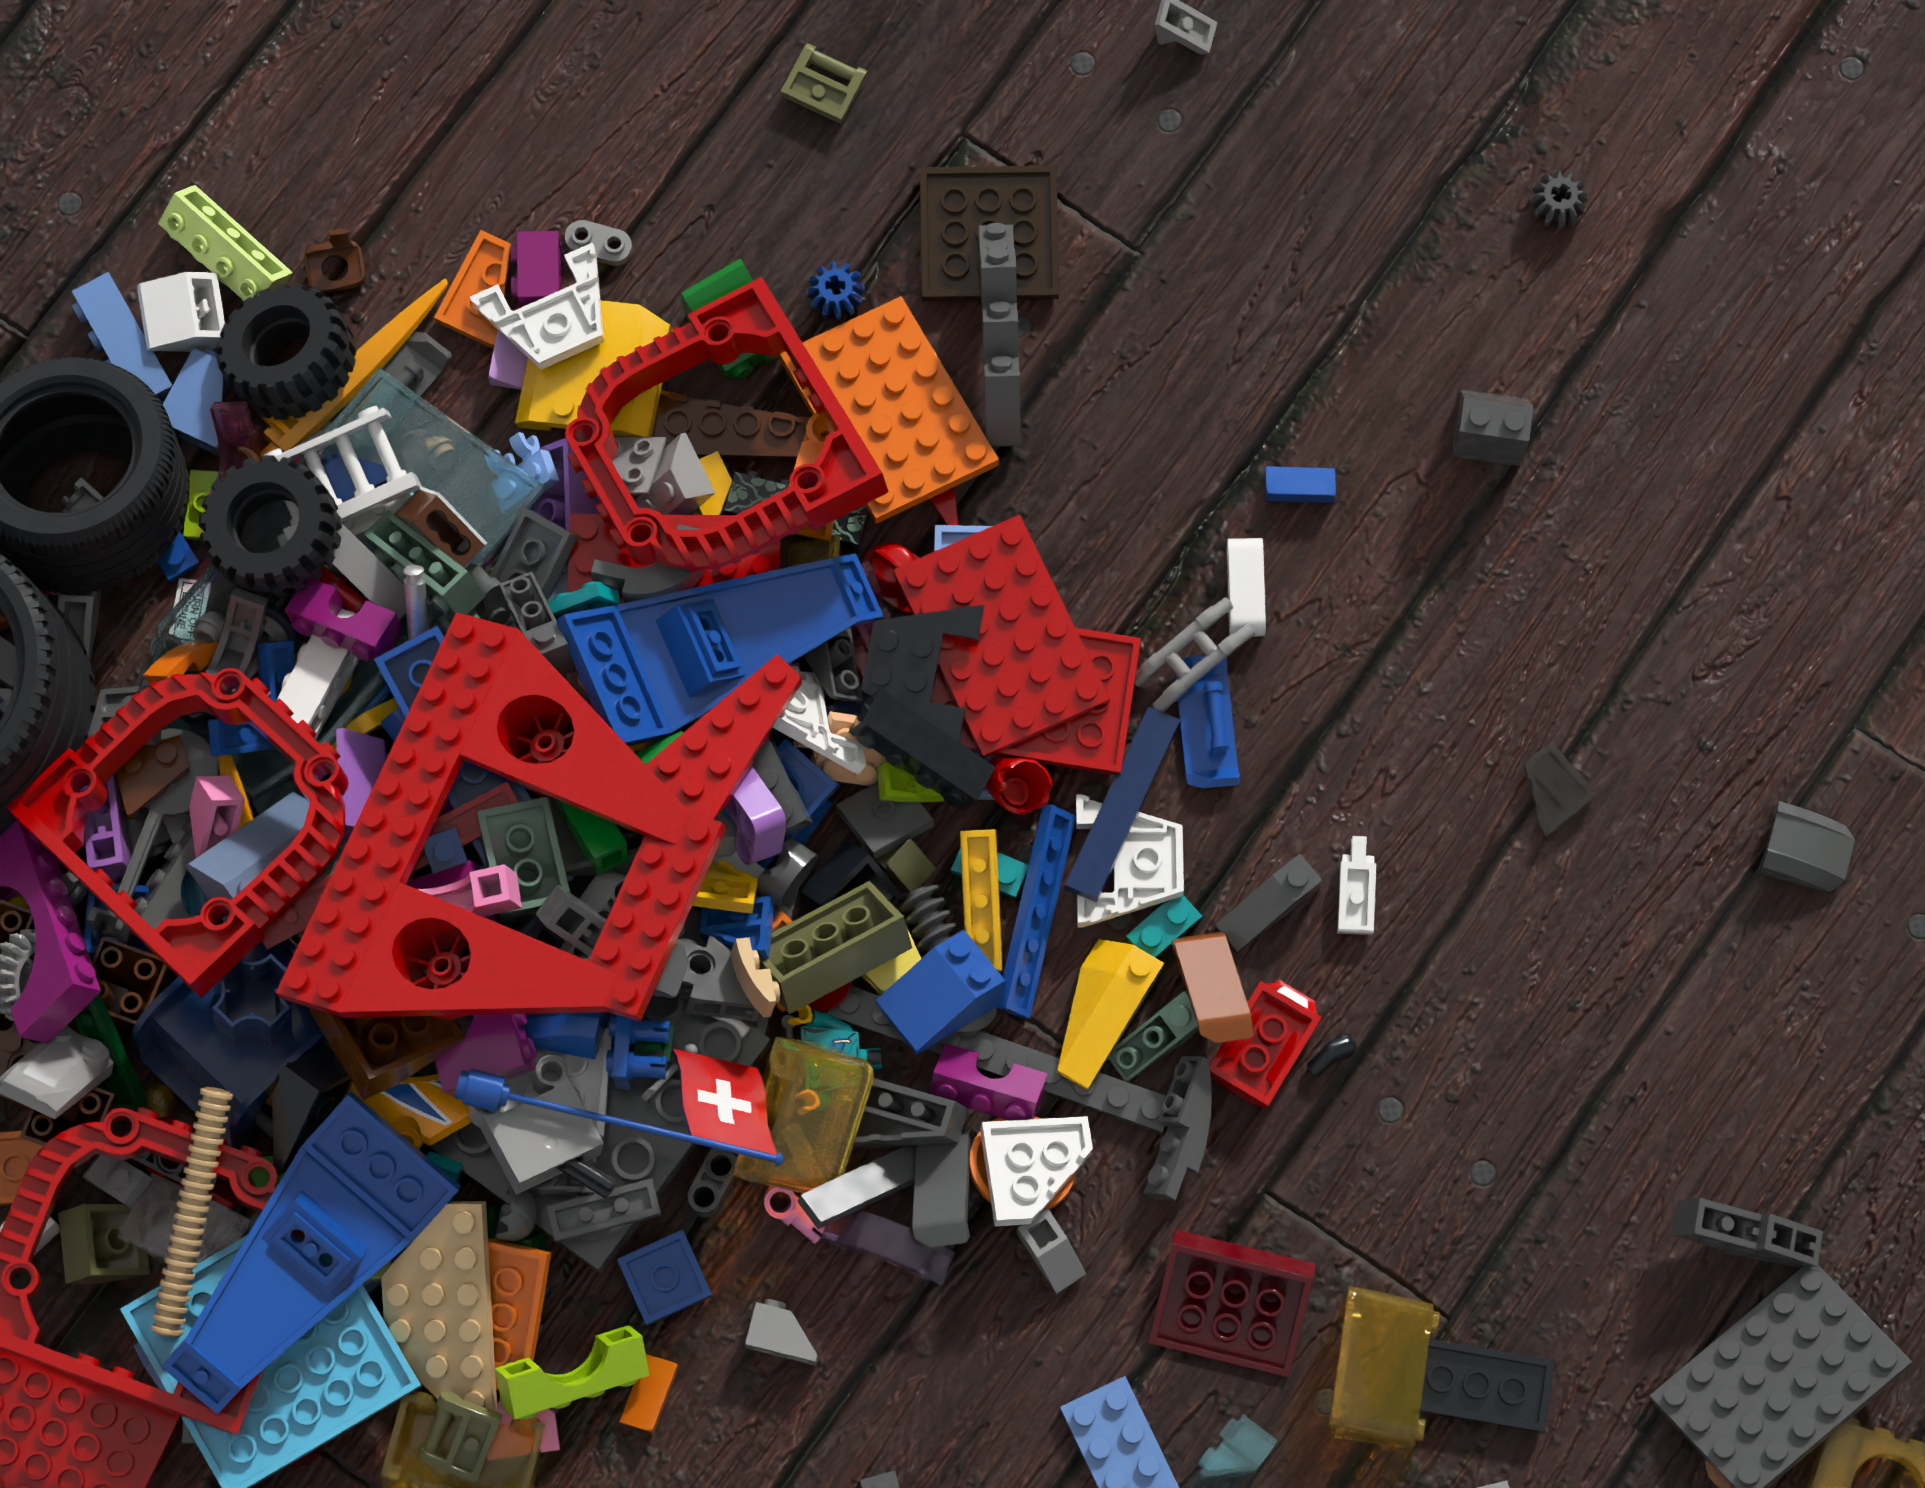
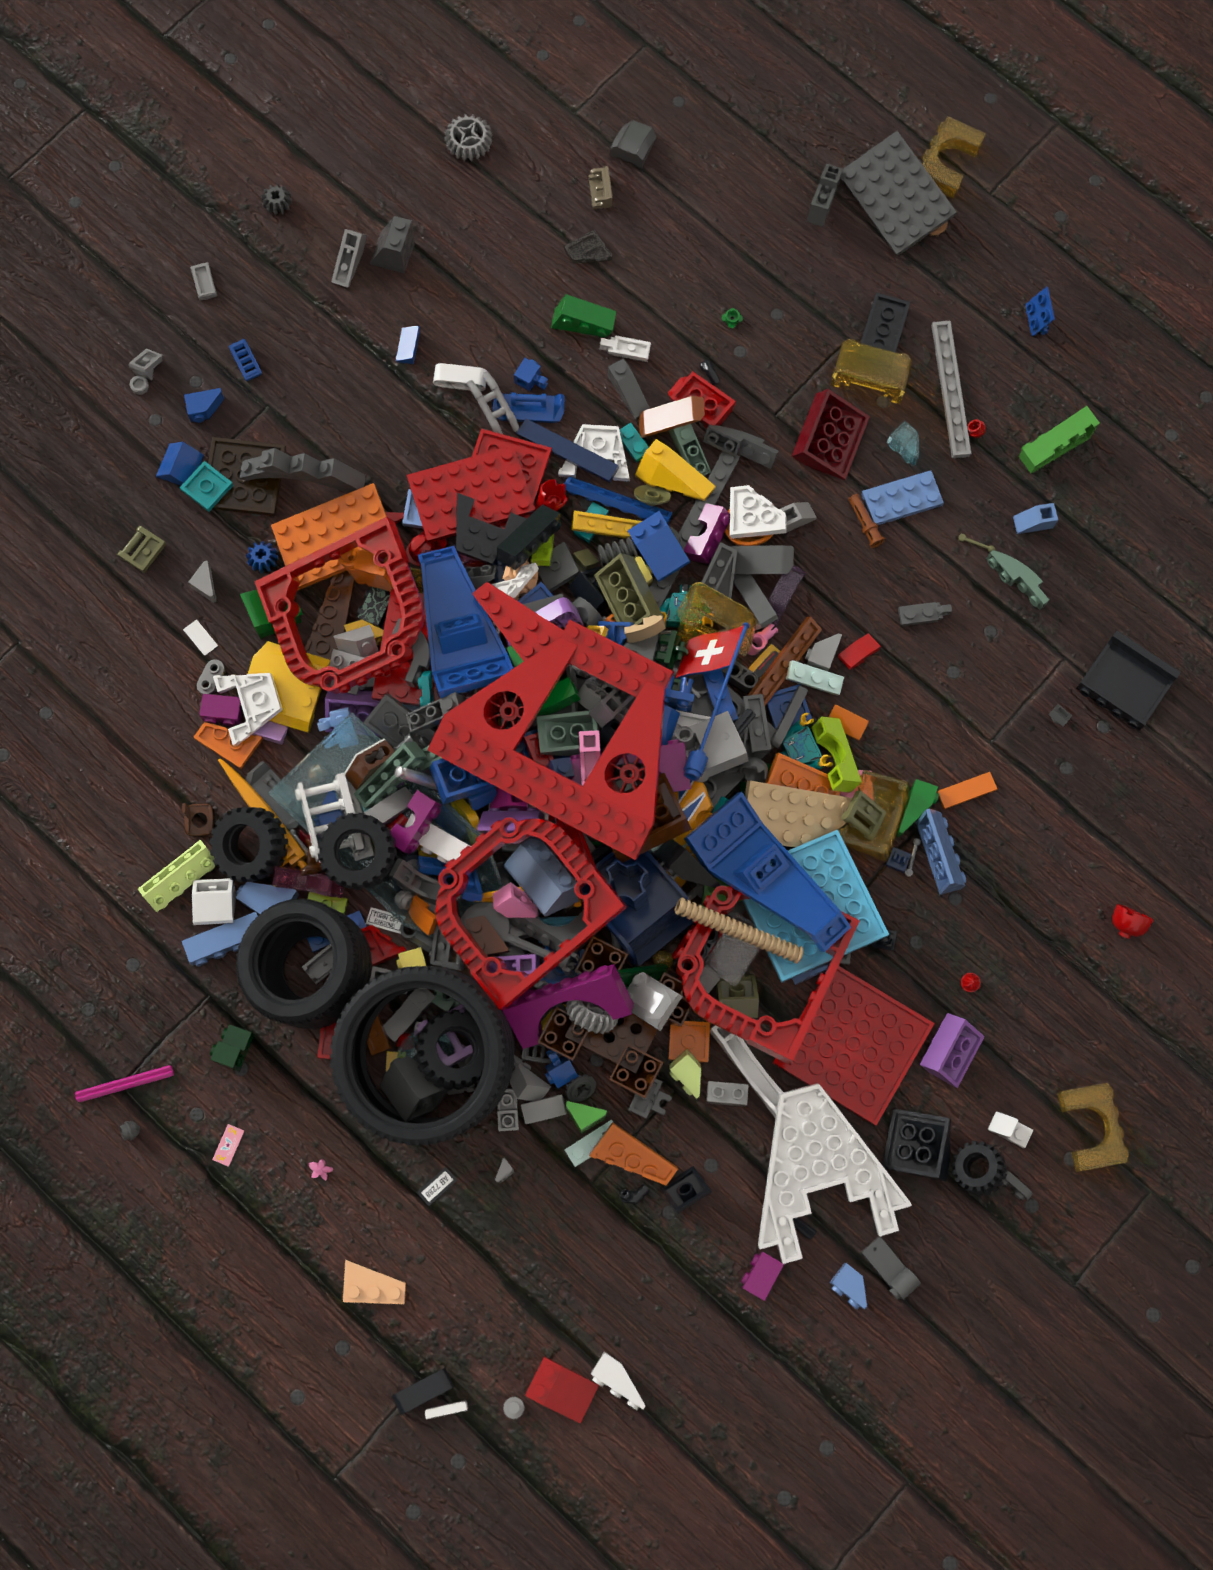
camera: 85 degrees left, 0 degrees up
(113, 663) = (411, 958): none -> light yellow brick
(137, 604) = (380, 945): none -> red wing
(582, 1310) = (801, 746): none -> teal torso
(633, 1146) = (713, 683): none -> blue plate
(633, 1273) = (788, 717): none -> dark grey beam
(674, 213) = (200, 637): none -> white sticker
(726, 1321) = (814, 678): none -> light aqua plate
(727, 1039) = (674, 651): none -> dark green hips
(747, 1259) = (793, 651): none -> dark orange plate
(757, 1228) = (763, 662): none -> sticker
(773, 200) = (203, 582): none -> light grey slope
(793, 1401) = (858, 651): none -> red slope
(955, 171) = (206, 486): none -> teal tile
(997, 121) = (179, 463): none -> blue slope
(1050, 1397) = (870, 528): none -> dark orange pin
(1054, 972) = (651, 495): none -> olive dish
(1117, 138) = (203, 404): none -> blue slope
(1142, 23) = (139, 385): none -> light grey tile
(1226, 181) = (240, 349): none -> blue slope
(1270, 712) = (529, 374): none -> blue brick
(1371, 99) = (203, 281): none -> light grey tile
(1402, 799) = (583, 317): none -> green wedge
(1455, 1074) = (732, 313): none -> green plate
(1462, 348) = (348, 257): none -> light grey slope
(1692, 797) = (600, 188): none -> dark tan hinge
(1768, 535) = (471, 144): none -> light grey gear

